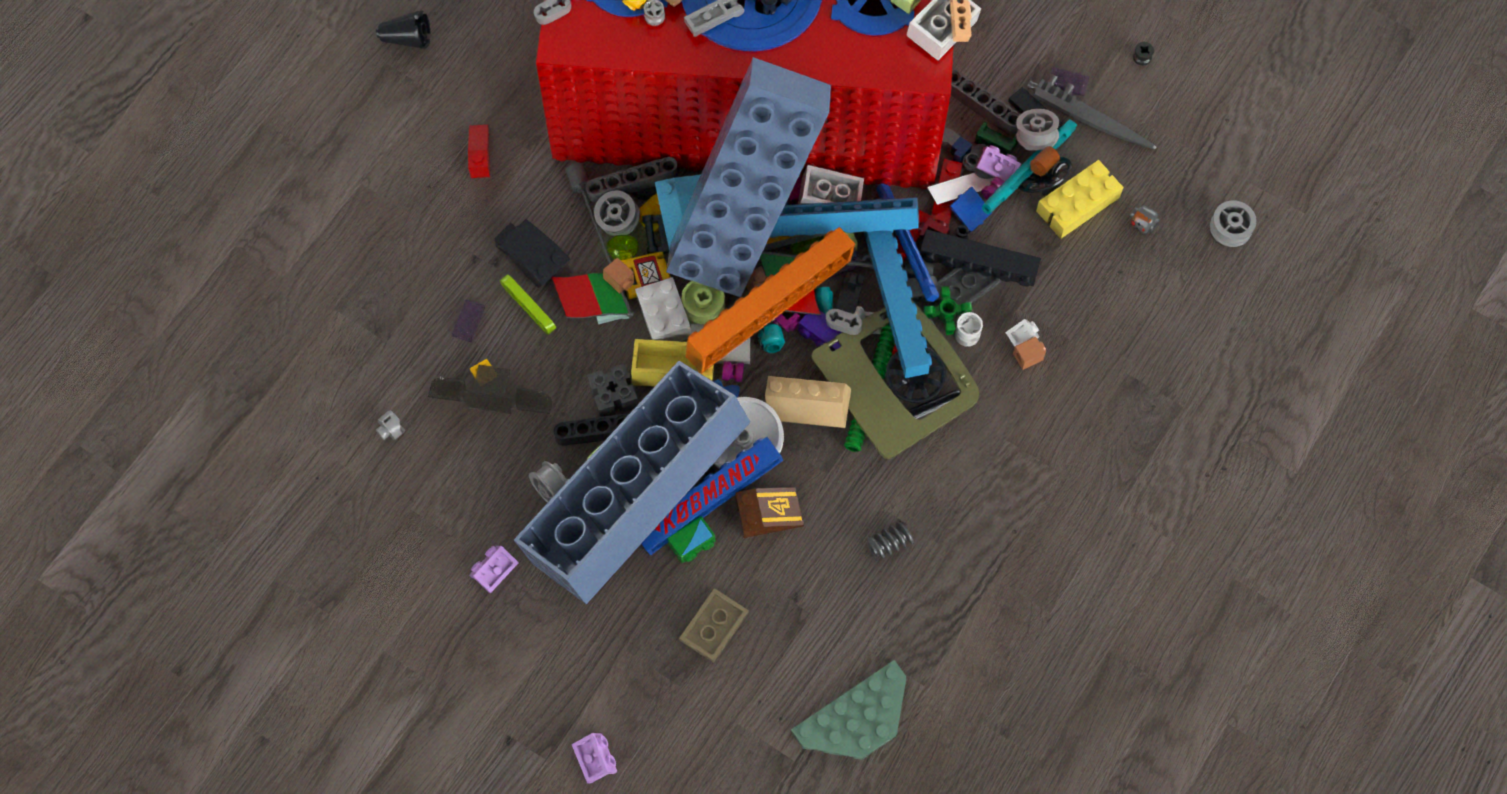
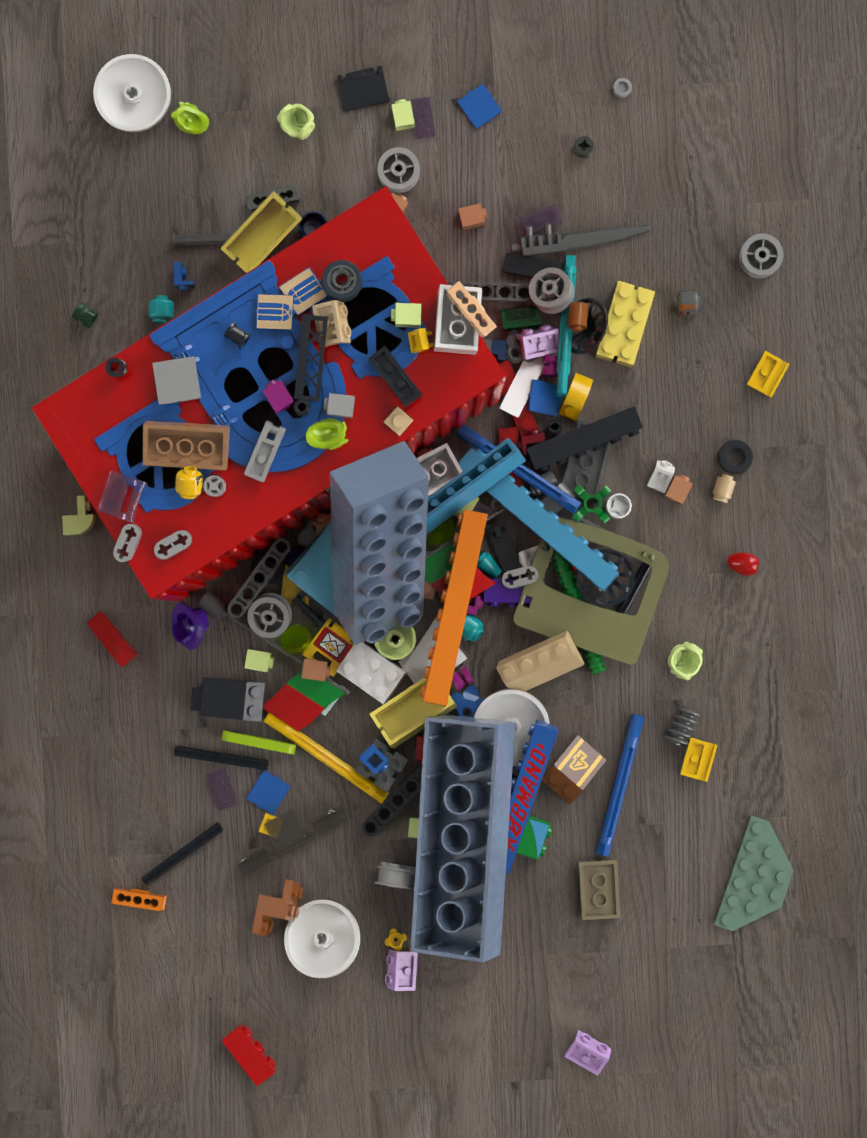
camera: 40 degrees left, 20 degrees up
(311, 541) = (249, 1054): none -> red brick
(329, 361) = (141, 893): none -> orange piece
(389, 427) = (235, 922): light grey piece -> none
(394, 346) = (182, 854): none -> black axle
(433, 436) = (277, 908): none -> dark orange bracket
(449, 490) = (322, 939): none -> white dish
(488, 296) = (219, 757): none -> black axle
(502, 538) = (397, 945): none -> yellow plate
(503, 350) = (268, 792): none -> blue piece
(523, 49) = (79, 523): none -> yellowish green brick
(547, 177) = (189, 625): none -> dark purple hat
(579, 243) = (259, 660): none -> yellowish green brick
(586, 33) = (170, 540): none -> light grey beam
(588, 404) = (326, 757): none -> yellow piece
(610, 365) = (366, 758): none -> blue brick
(772, 34) = (327, 434): none -> lime hat
(799, 552) = (620, 784): none -> blue piece
(800, 21) = (339, 405): none -> light grey brick
(837, 65) = (398, 421): none -> tan plate
(860, 31) = (395, 377): none -> black hinge
(883, 579) = (698, 759): none -> yellow plate
(900, 18) = (418, 340): none -> yellow tile
(933, 488) = (685, 660): none -> yellowish green hair
(997, 222) = (576, 396): none -> yellow brick
(1014, 42) = (472, 216): none -> nougat brick
(1042, 448) = (743, 563): none -> red animal
(1069, 378) = (723, 488): none -> tan brick
(1095, 374) = (739, 445): none -> black tyre
(1173, 317) = (767, 374): none -> yellow plate
(1207, 34) = (622, 88): none -> light grey tile

